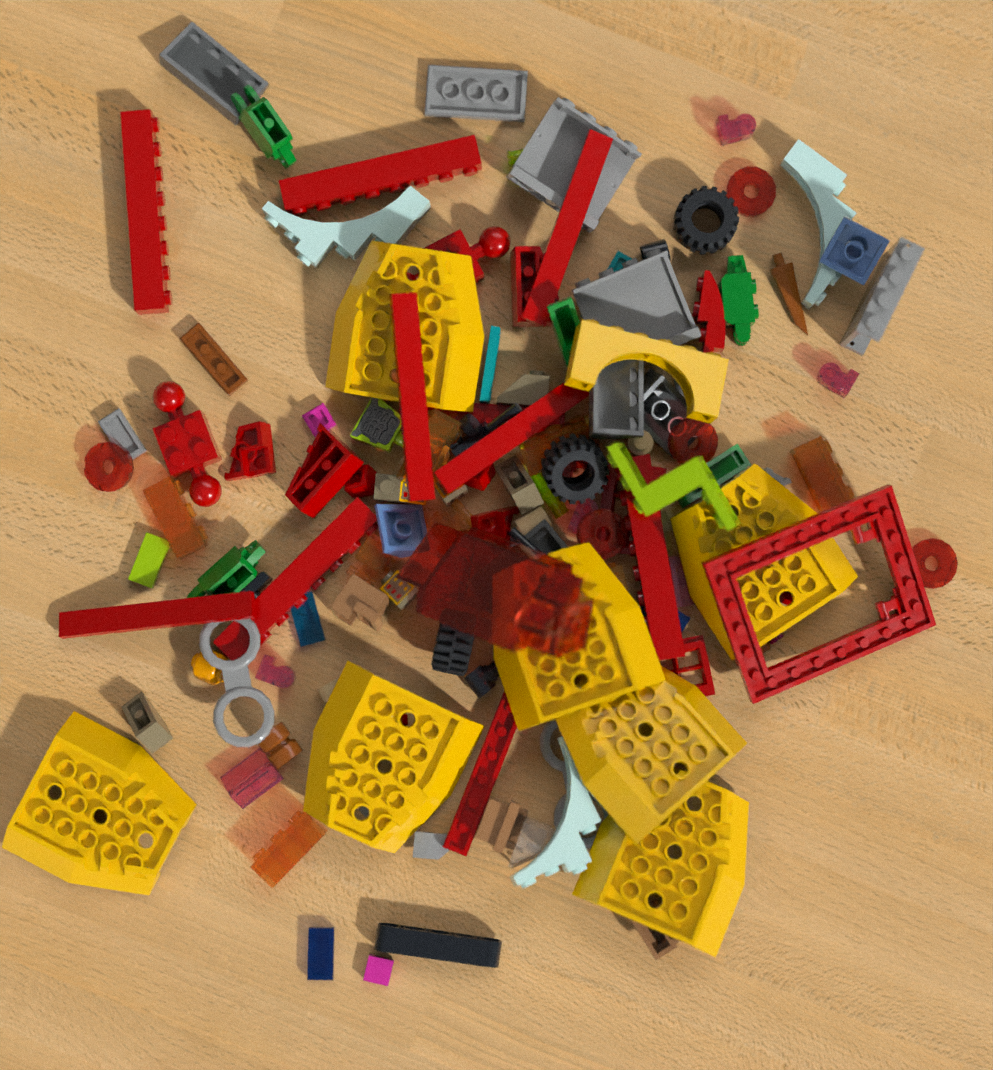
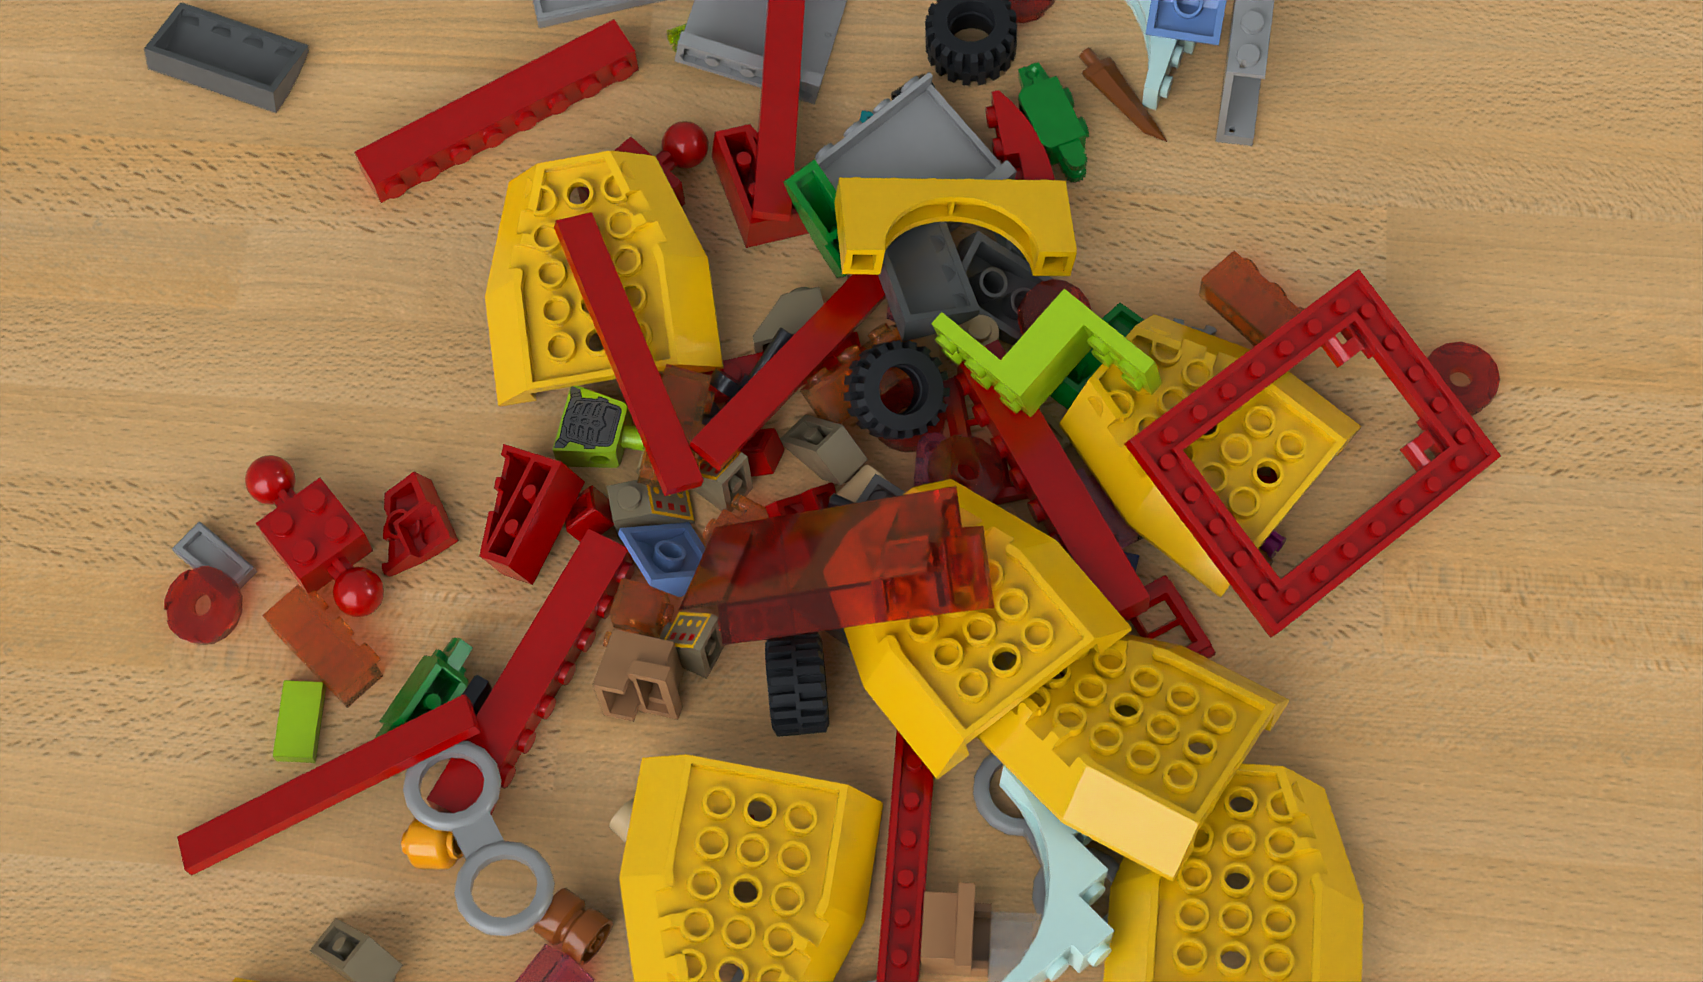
camera: 15 degrees left, 20 degrees down
(145, 212) = (174, 255): red brick -> none
(214, 359) = (324, 417): dark orange tile -> none
(265, 126) = (317, 93): green hinge -> none
(275, 675) = (537, 825): clear pink leg -> none
(308, 622) = (567, 738): tile -> none
(316, 416) = (491, 449): dark pink tile -> none
(351, 237) = (476, 200): light aqua arch -> none
(482, 679) = (858, 735): black pin -> none
(490, 365) = (729, 301): teal tile -> none
(556, 506) = (876, 452): clear neon green pin -> none
(835, 380) = (1227, 180): clear pink leg -> none

